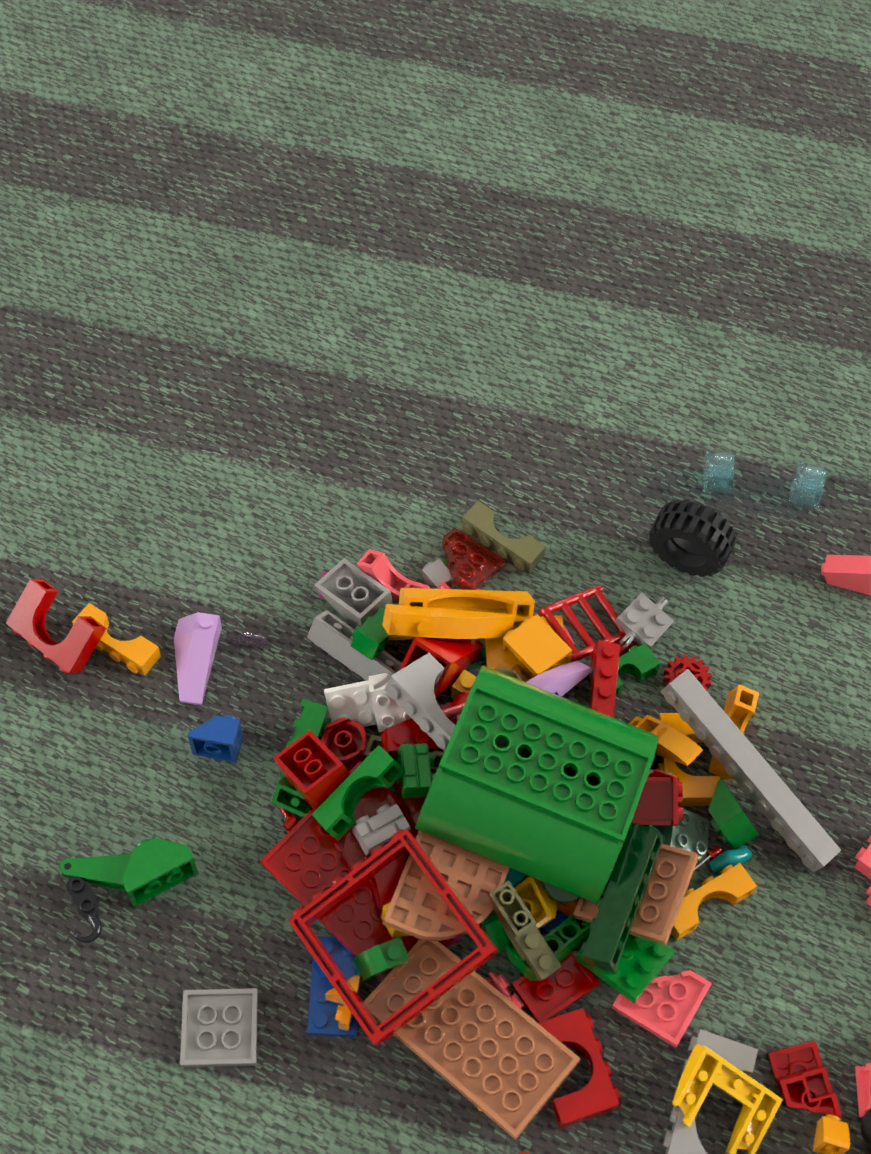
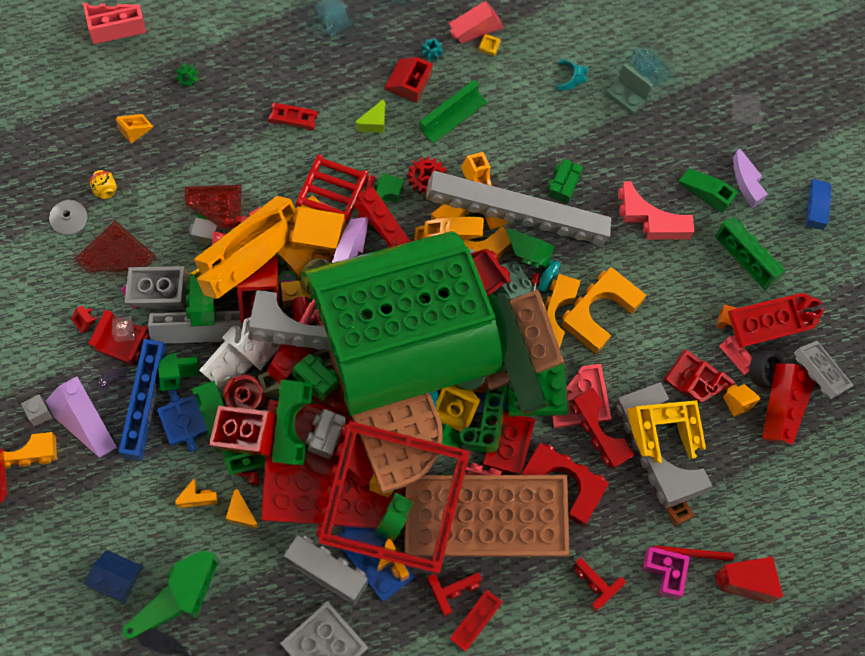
camera: 45 degrees left, 10 degrees up
(99, 810) = (113, 576): none -> dark blue slope
(163, 620) = (36, 410): none -> light grey brick
(217, 739) = (154, 461): blue slope -> none
(223, 795) = (190, 498): none -> light orange slope
(252, 843) = (239, 512): none -> light orange slope
(258, 677) = (142, 401): none -> blue brick
(268, 574) = (82, 319): none -> red tile
(273, 724) = (182, 420): none -> blue plate
(278, 954) = (326, 570): none -> light grey brick
(284, 613) = (124, 351): none -> red panel
(295, 607) = (123, 328): none -> clear slope
(303, 672) = (172, 369): none -> green brick
(334, 489) = (73, 223): none -> light grey dish
(343, 535) = (114, 252): none -> clear red plate
(376, 1126) = (476, 620): none -> red plate
(379, 568) = (161, 256): coral arch -> none
(379, 1078) = (452, 591): none -> red bracket
(385, 475) = (103, 184): none -> yellow head
(455, 446) = (133, 126): none -> light orange slope
(513, 348) = (112, 22): none -> coral wedge
(522, 932) = (470, 426): olive slope -> none
(523, 552) = (201, 171): olive arch -> none
(539, 434) = (187, 80): none -> green gear
(606, 536) = (293, 116): none -> red plate
(644, 621) = (368, 158): light grey plate -> none
(652, 1077) = (587, 408): none -> red arch
(678, 591) = (372, 120): none -> lime slope
(692, 538) = (357, 75): black tyre -> none
(746, 579) = (410, 78): none -> red slope
(763, 638) = (452, 112): none -> green panel
(783, 914) = (610, 286): none -> light orange arch
(790, 568) = (436, 49): none -> teal gear
(823, 782) = (565, 181): none -> green brick
(853, 603) = (489, 45): none -> yellow tile

